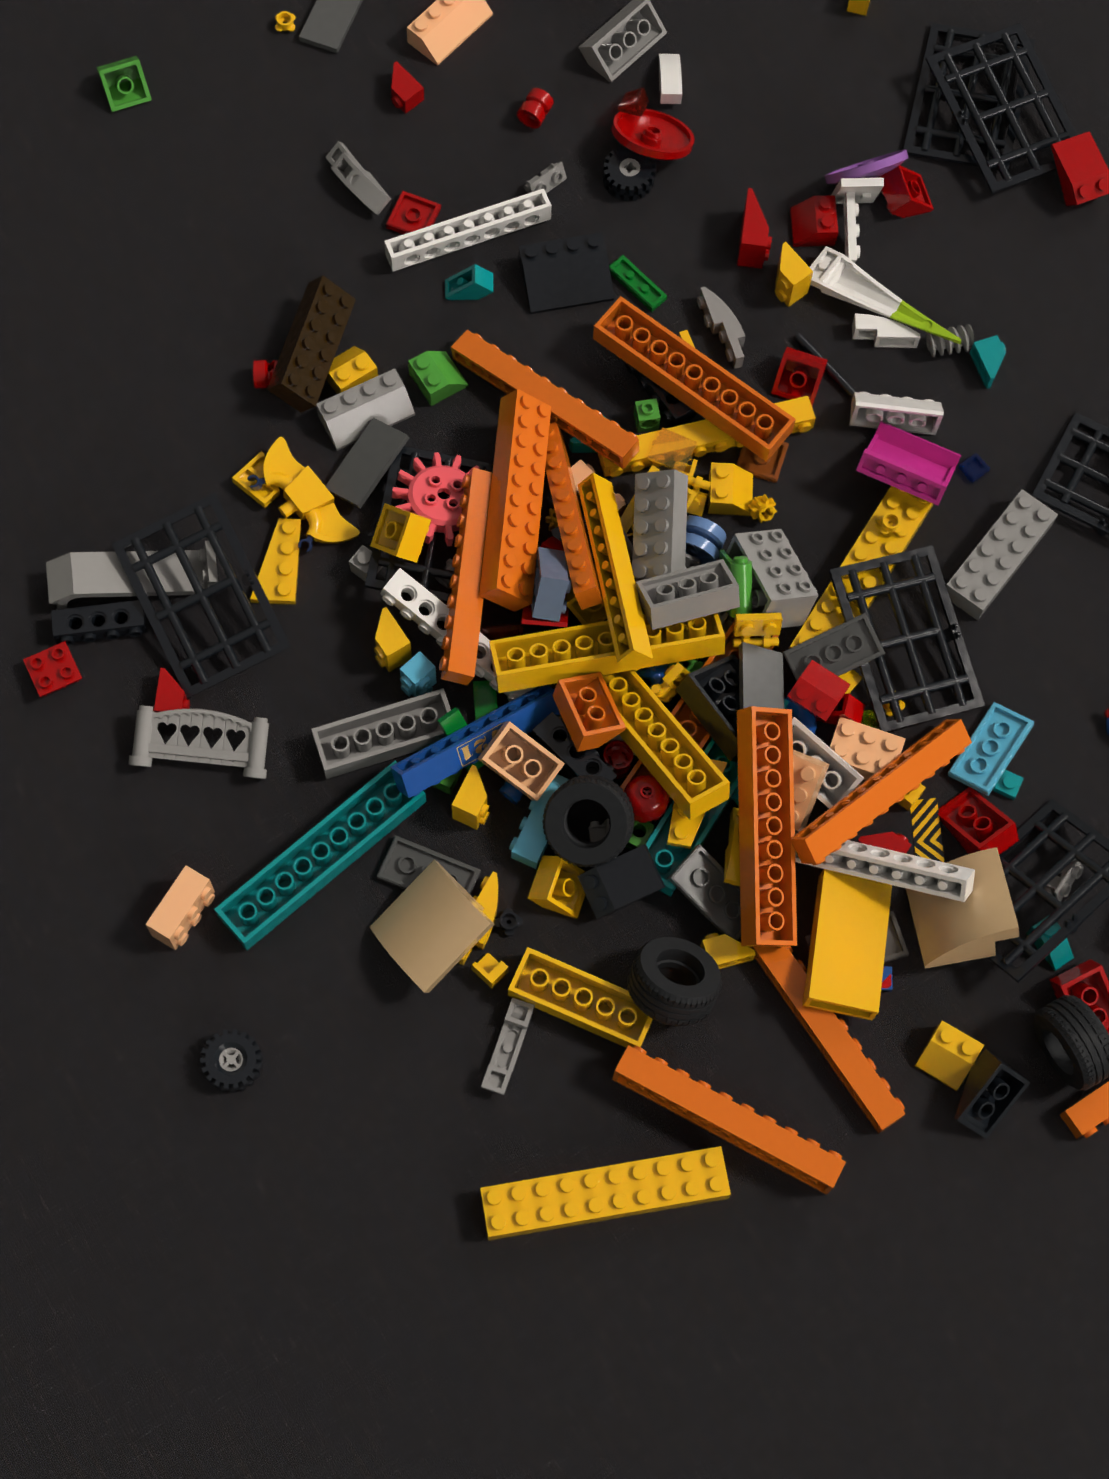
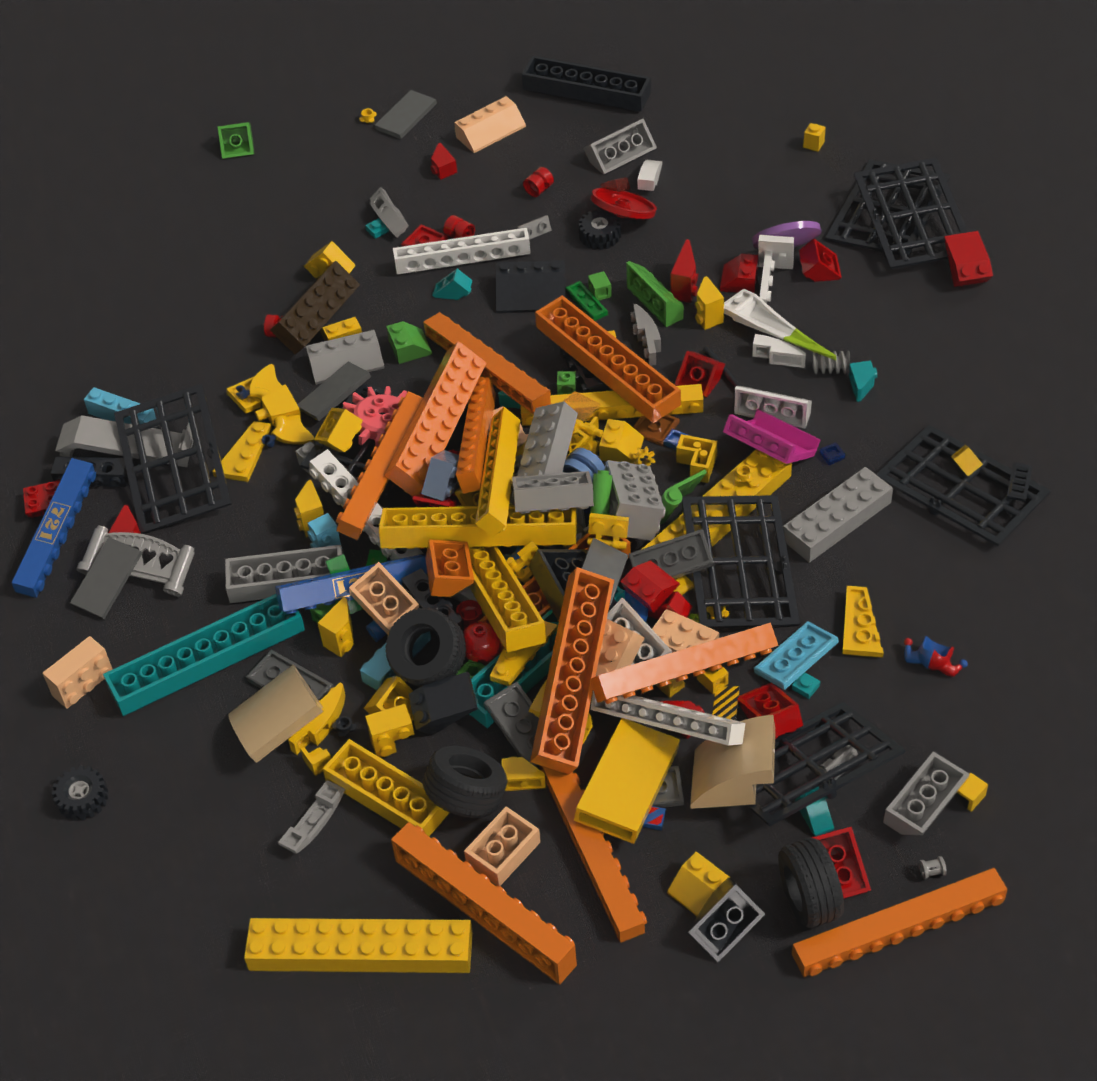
camera: 20 degrees right, 20 degrees down
(84, 713) = (54, 528): none -> blue brick
(101, 525) = (105, 404): none -> medium azure brick
(170, 772) = (106, 578): none -> dark grey tile
(305, 266) = (325, 257): none -> yellow brick
(347, 202) = (377, 228): none -> teal plate
(452, 194) = (457, 227): none -> red wheel
(567, 924) = (387, 727): none -> yellow brick
(650, 260) = (599, 285): none -> bright green brick
(719, 267) = (653, 294): none -> bright green slope
(730, 1047) = (502, 846): none -> light nougat brick
(791, 473) = (673, 438): none -> blue tile
(814, 562) = (673, 496): none -> bright green door
(827, 494) = (697, 453): none -> yellow brick
(1052, 701) = (860, 625): none -> yellow wing

